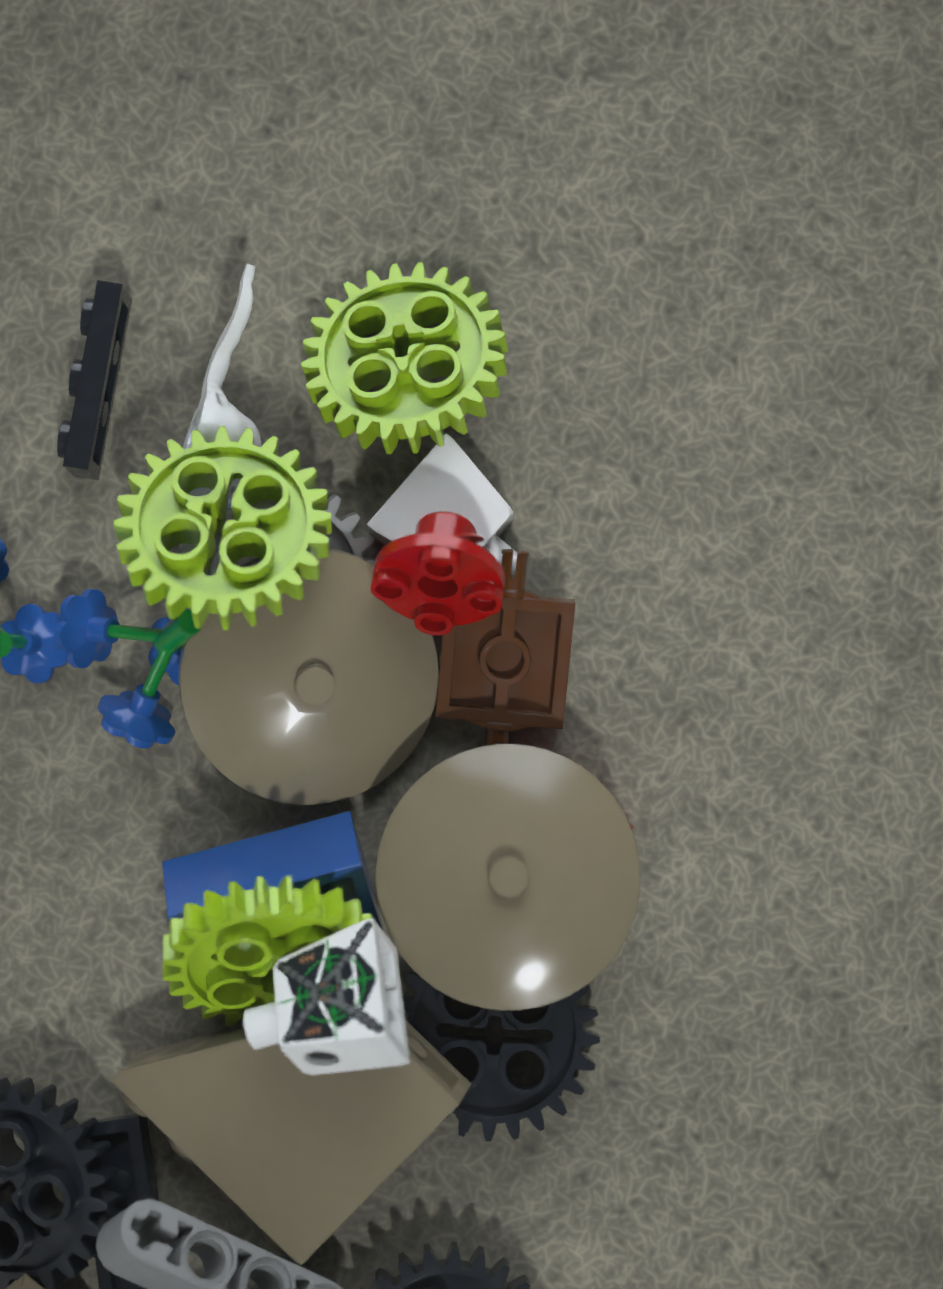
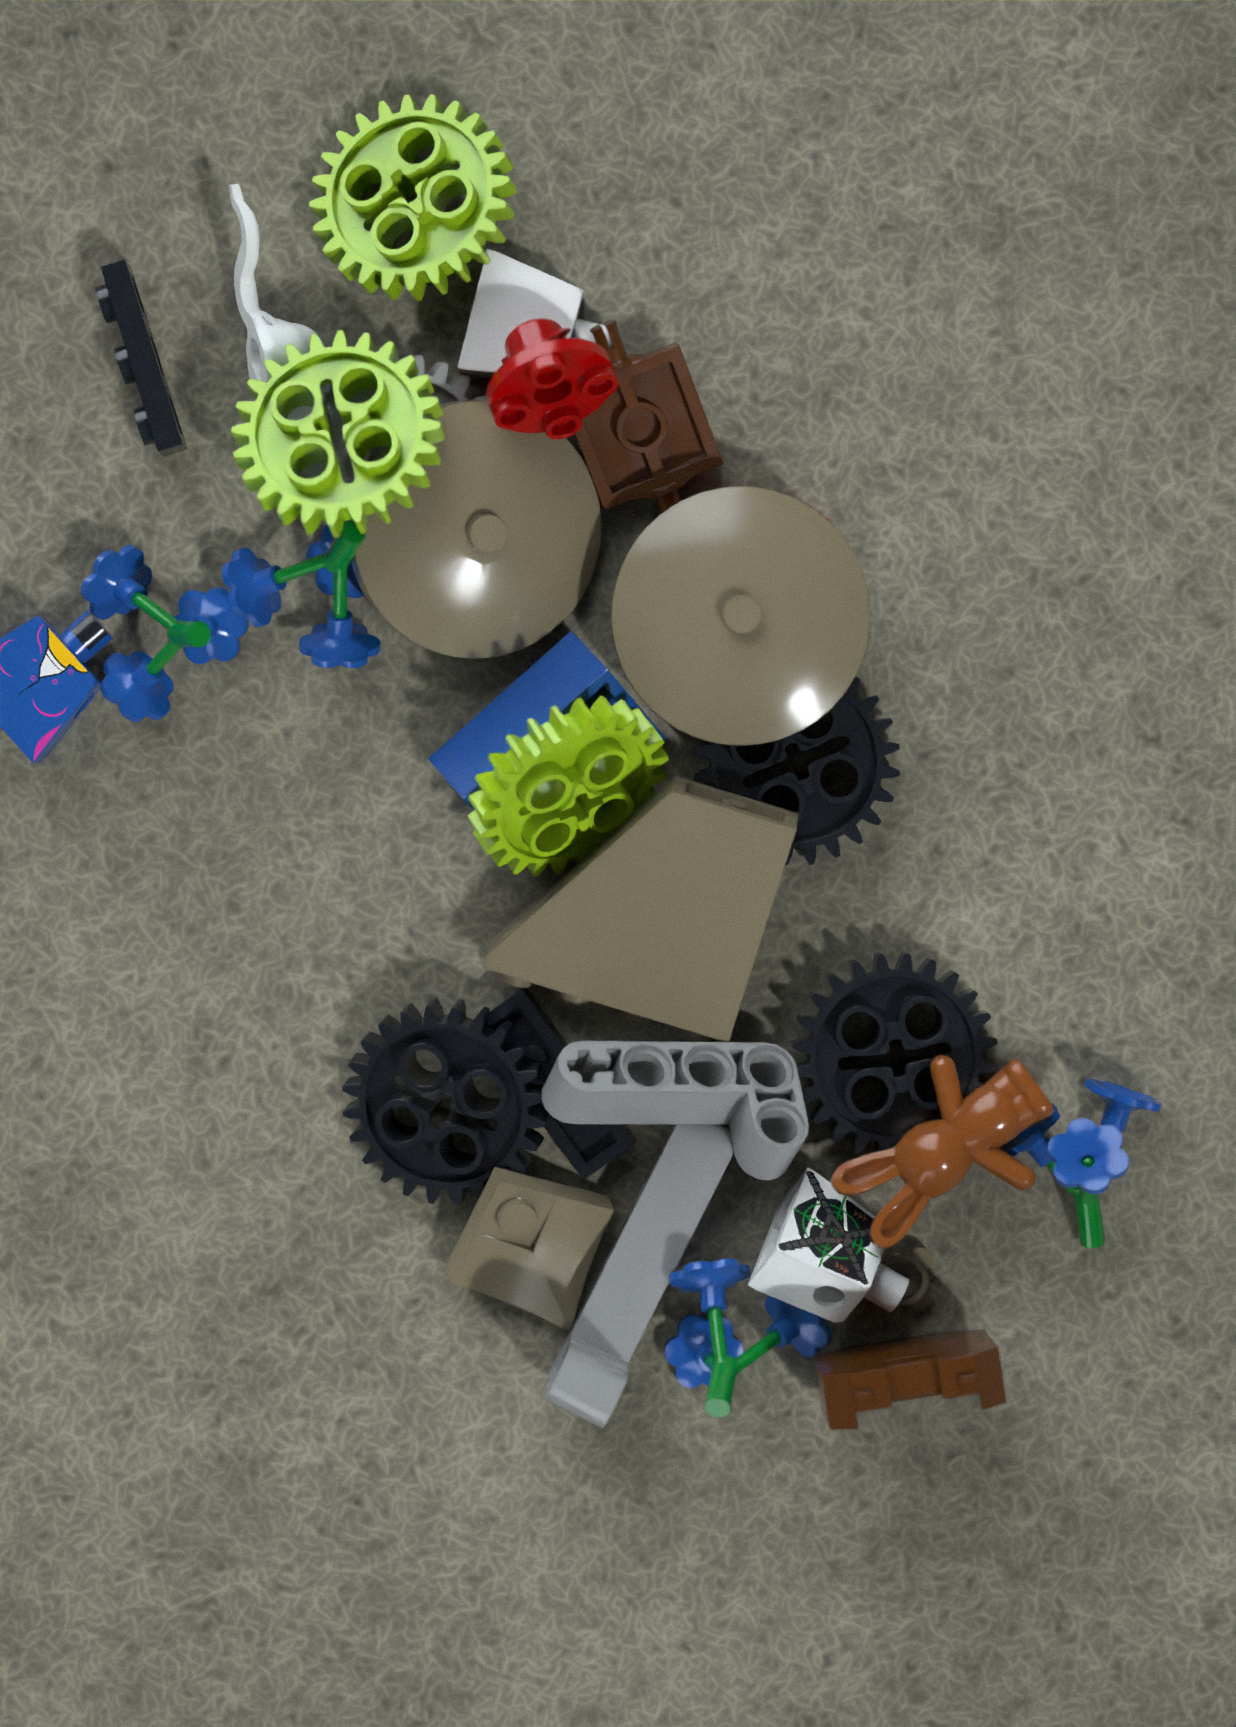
camera: 30 degrees left, 5 degrees up
(336, 1005) = (649, 795): torso -> none

